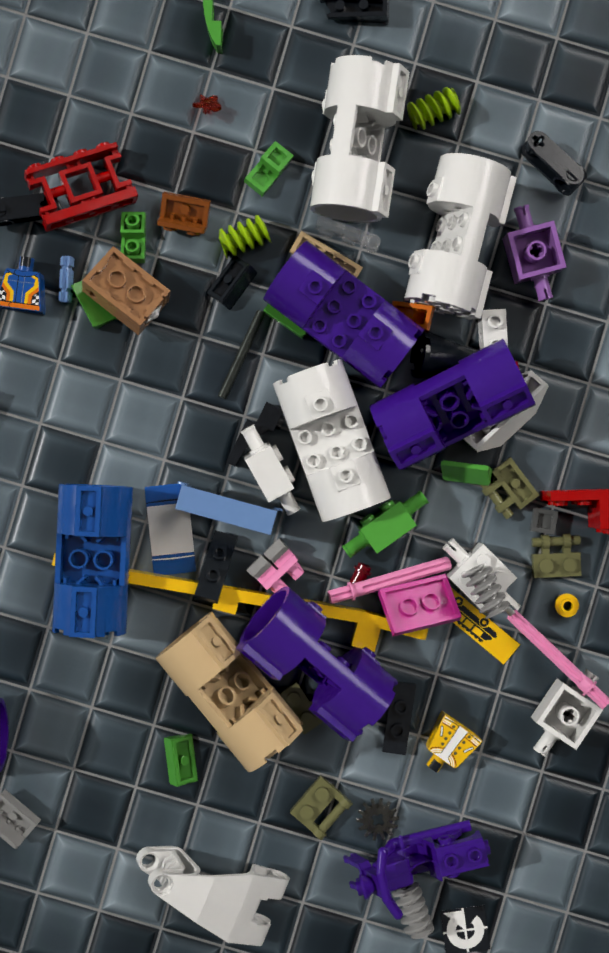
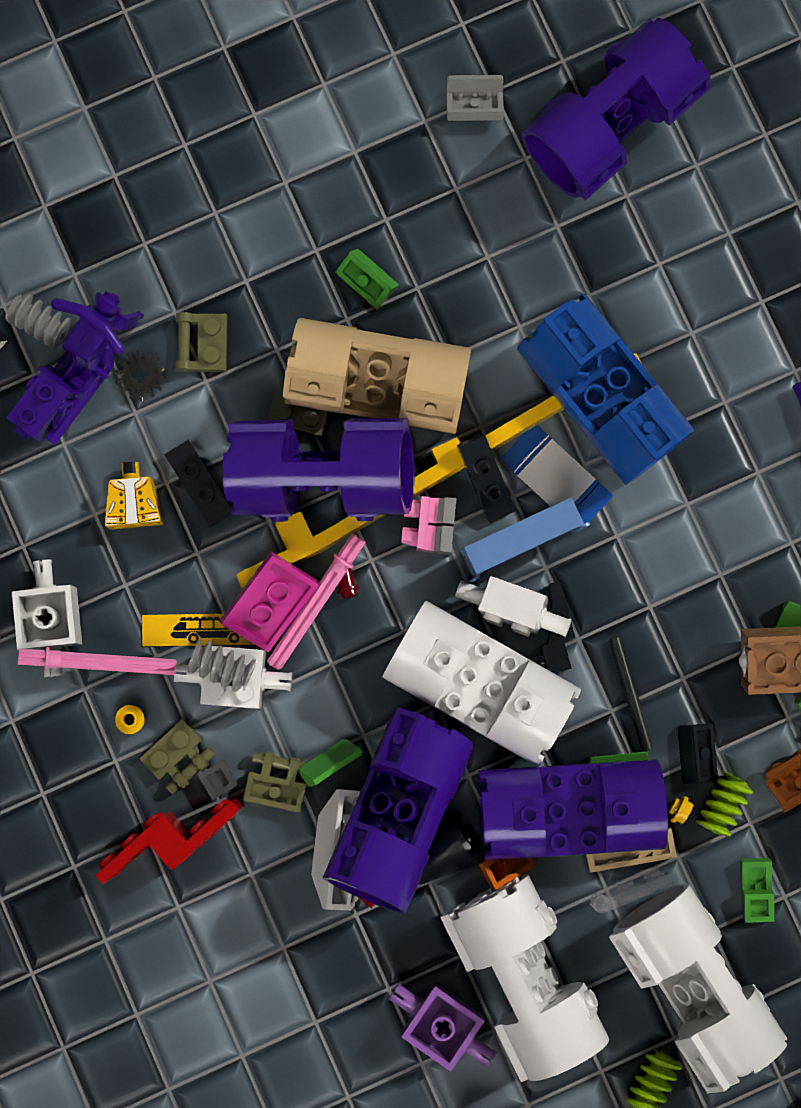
camera: 140 degrees right, 5 degrees down
(216, 902) = (227, 179): white piece -> none
(273, 257) = (680, 809): none -> yellow plate
(385, 526) = (362, 648): bright green brick -> none
(492, 327) = (421, 921): white brick -> none

